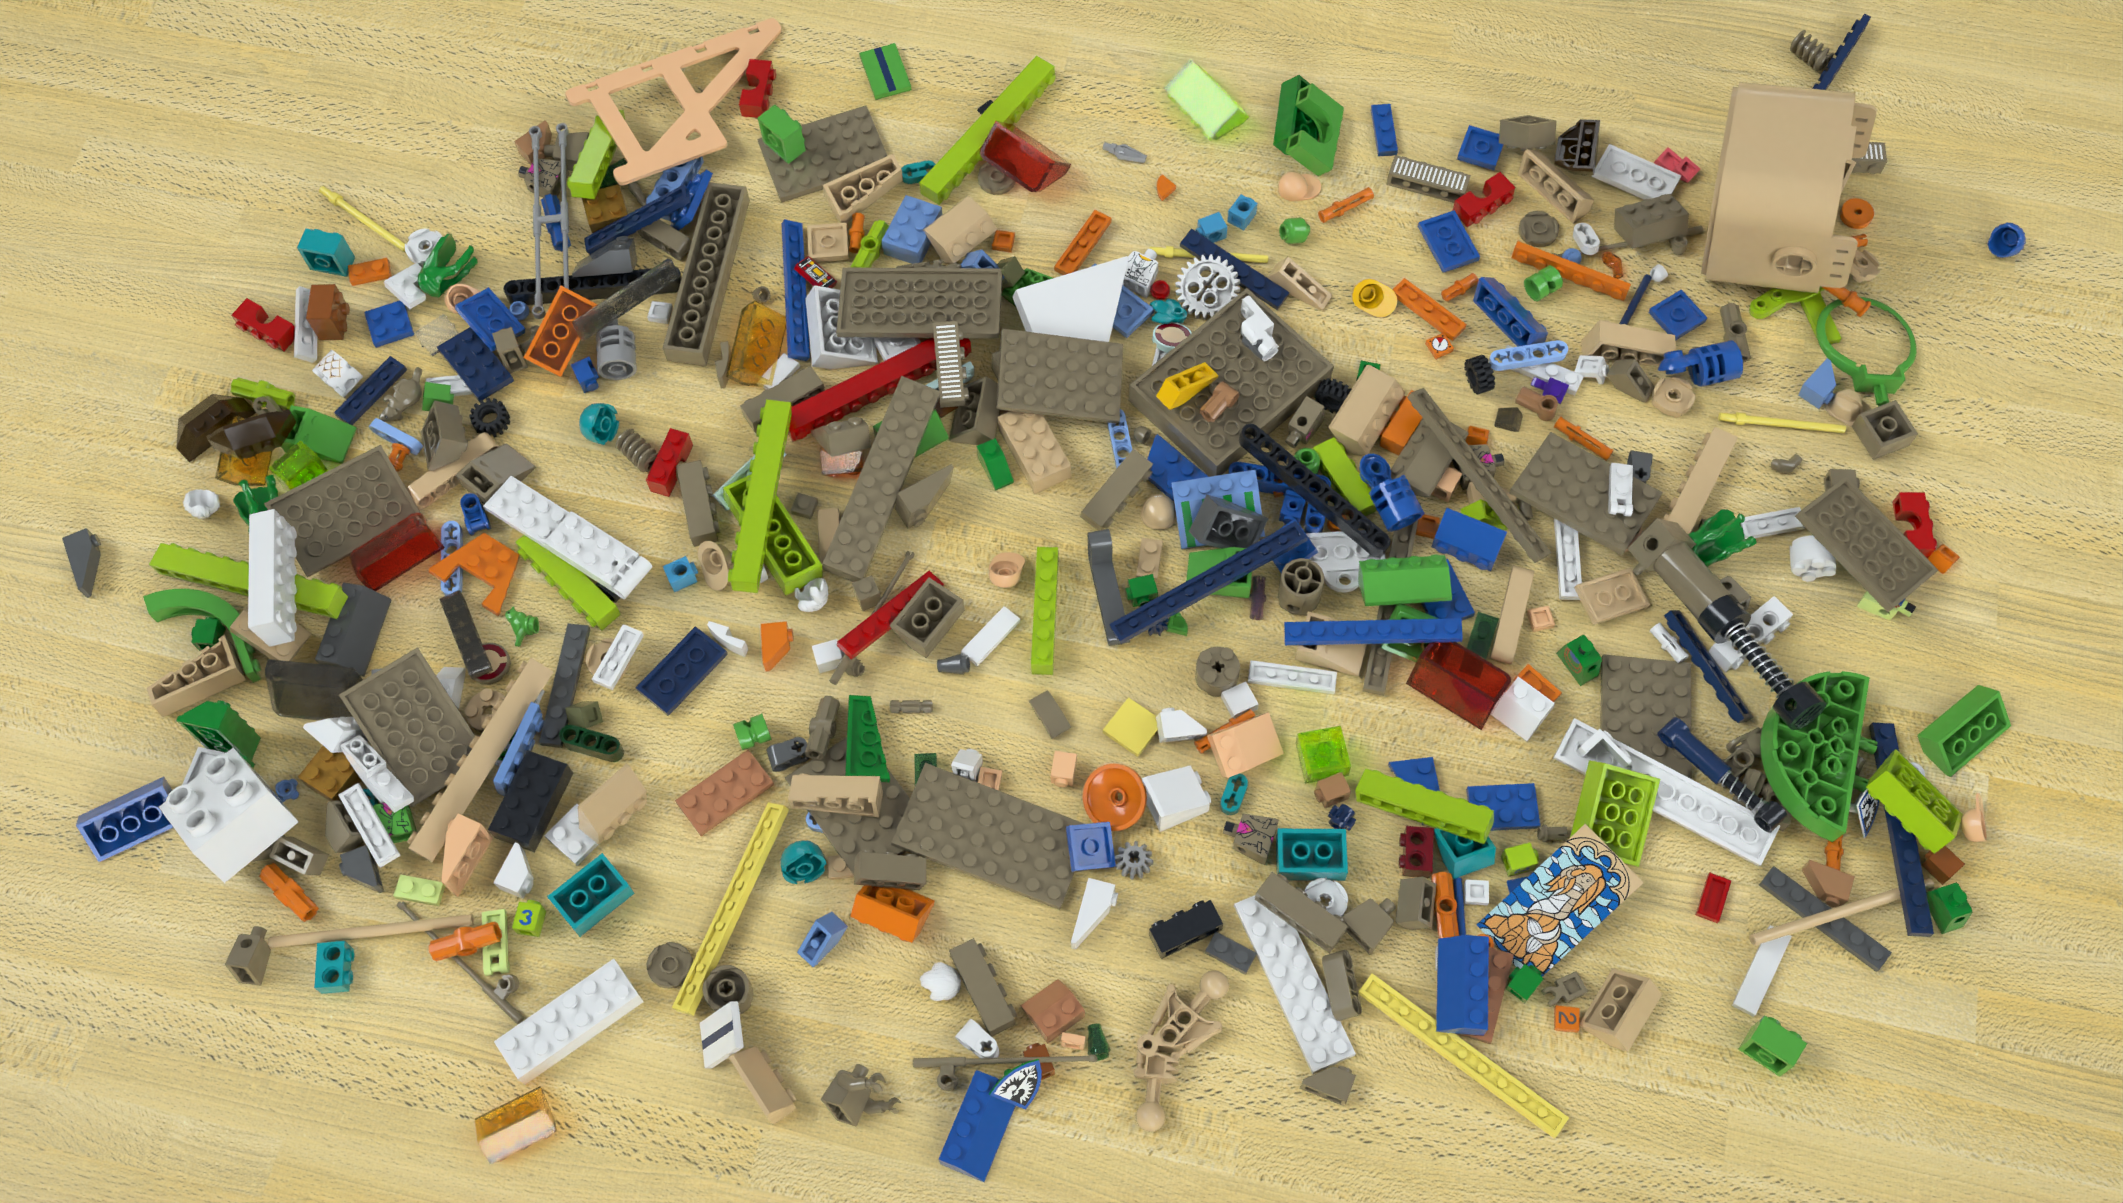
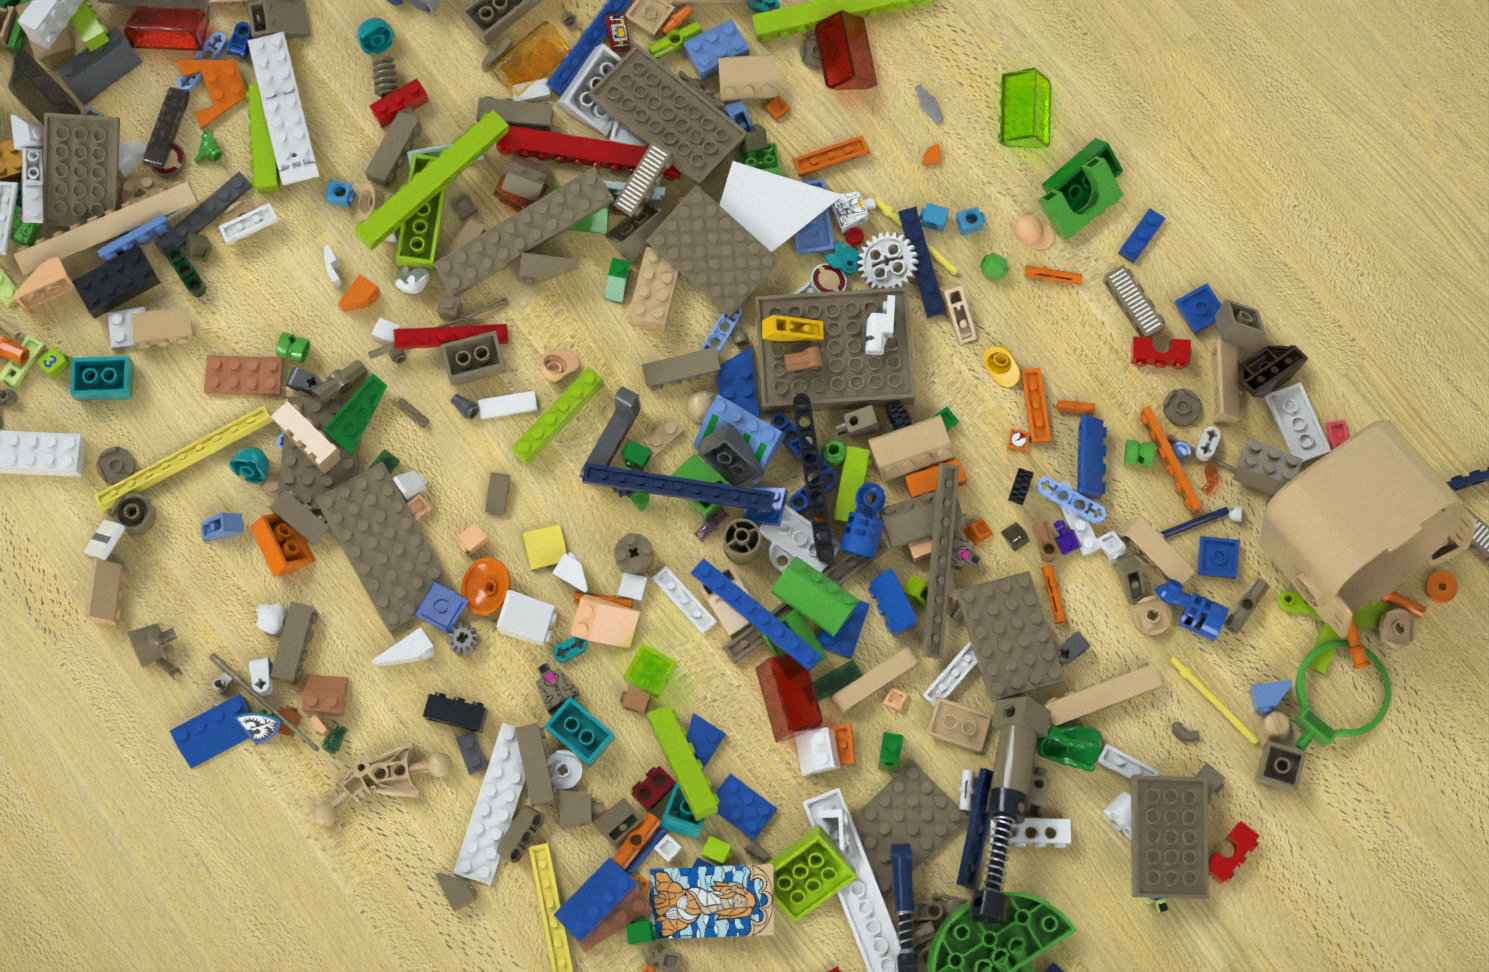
camera: 40 degrees right, 10 degrees up
(515, 873) = (69, 324): white slope -> none
(681, 671) = (284, 266): dark blue plate -> none
(1292, 507) = (793, 486): blue brick -> none
(1342, 817) = (624, 724): dark blue gear -> none
(1427, 526) = (878, 566): orange tile -> none
(1448, 241) = (1102, 364): blue plate -> none
(1620, 489) = (1032, 654): white plate -> none
(1943, 558) = (1230, 893): orange slope -> none

